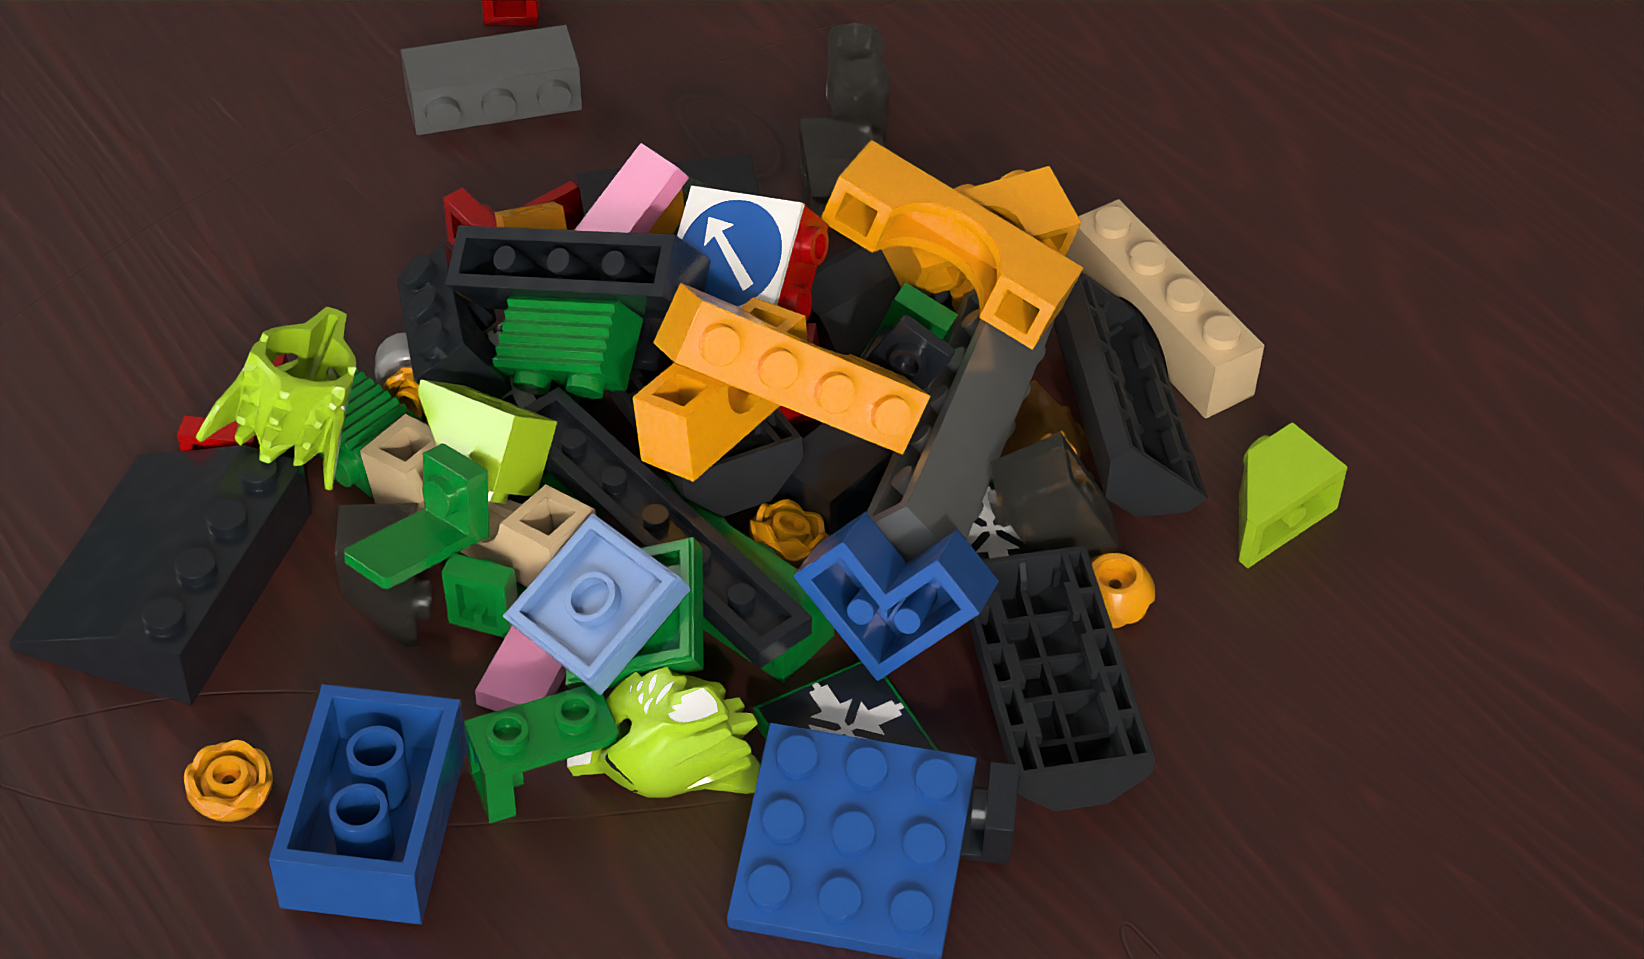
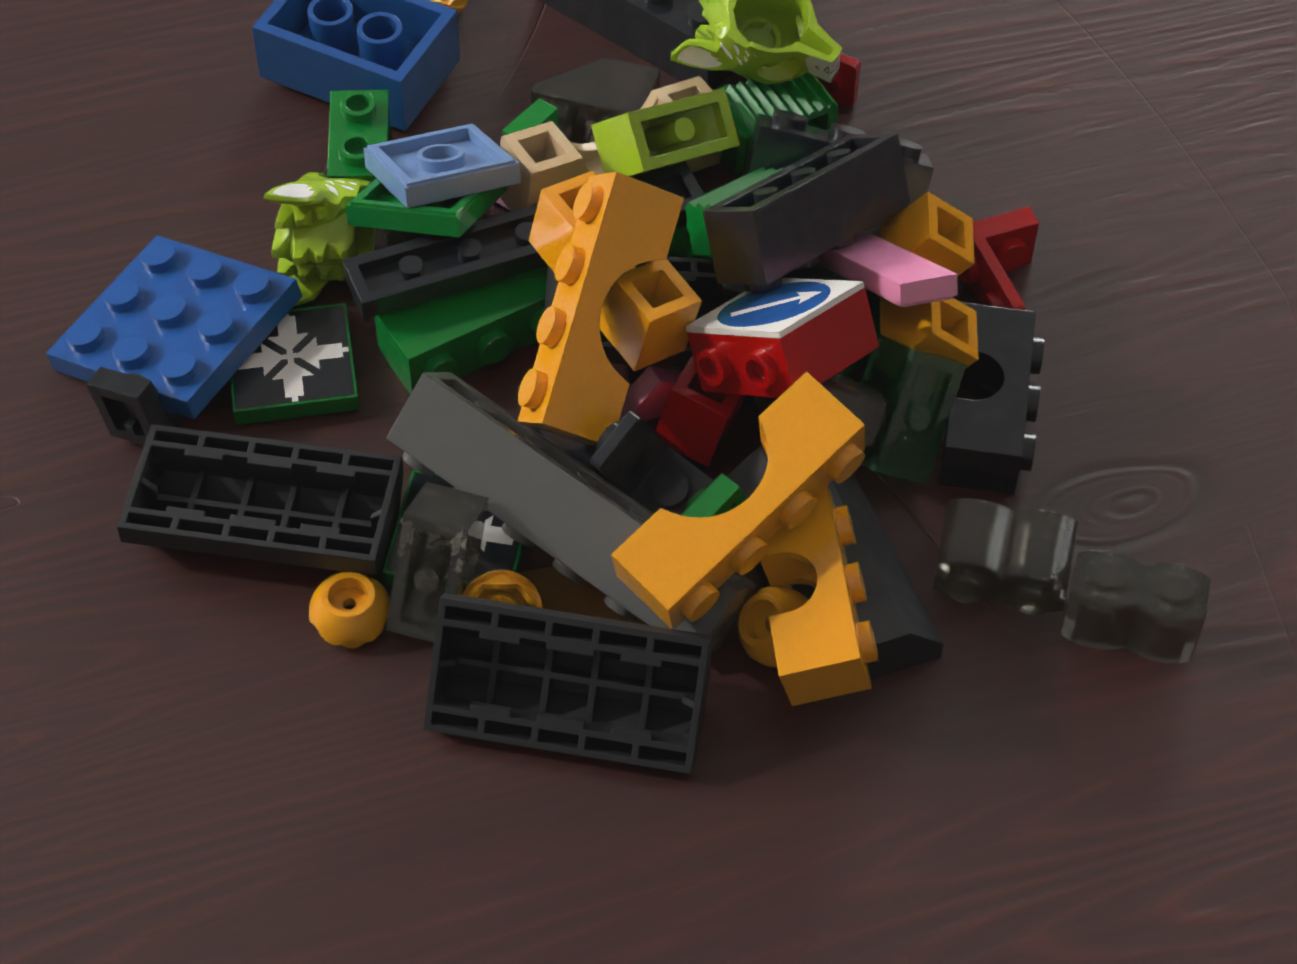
camera: 110 degrees right, 5 degrees up
(450, 522) = (579, 87): green bracket -> none
(491, 79) = (1229, 304): dark grey brick -> none
(788, 530) = (501, 360): light orange plate -> none
(892, 606) = (365, 386): blue brick -> none
(1204, 344) = (613, 780): tan arch -> none
(1284, 490) = (393, 783): lime slope -> none

